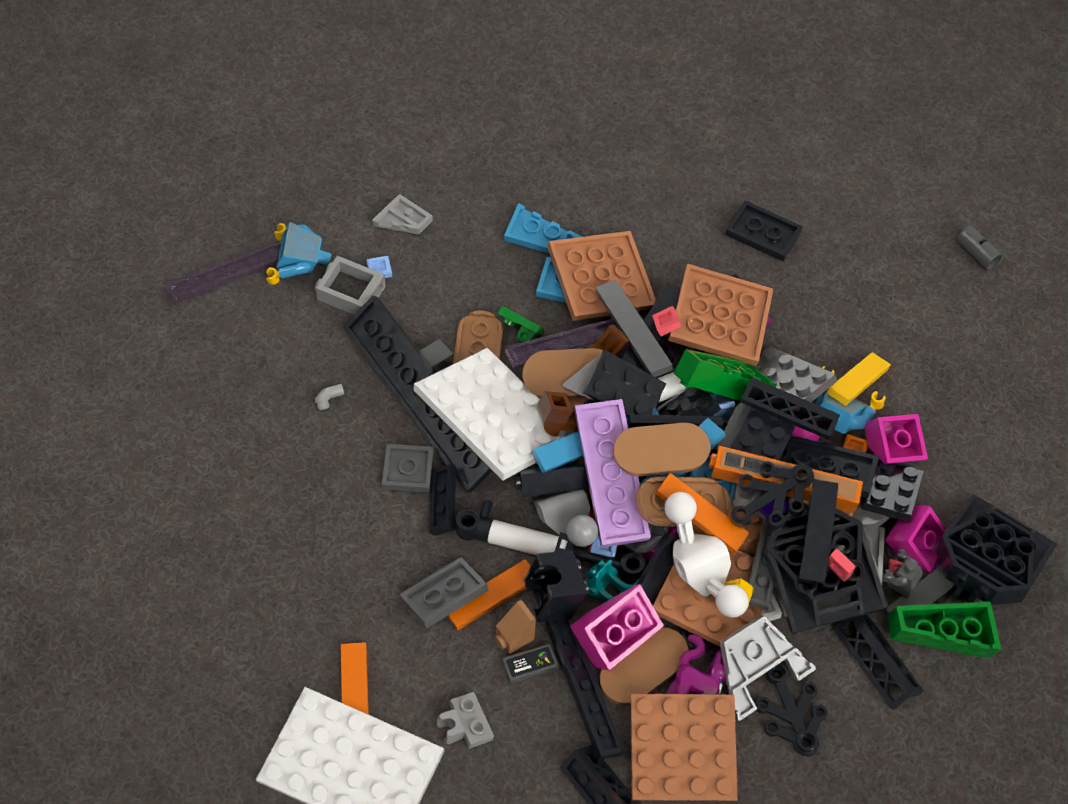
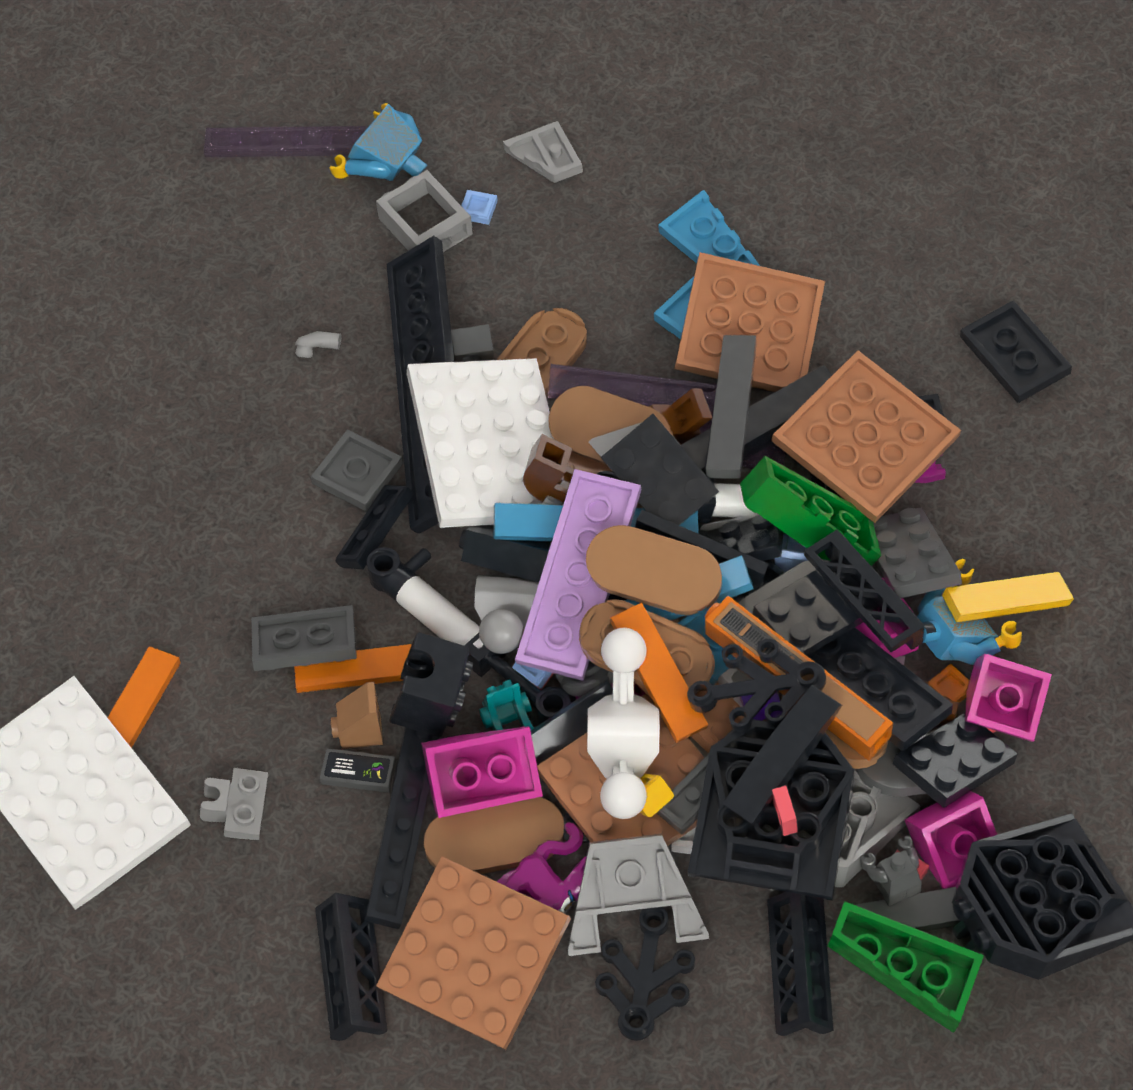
camera: 35 degrees right, 0 degrees up
(528, 329) = (615, 356): green hinge -> none
(666, 321) = (779, 413): coral tile -> none

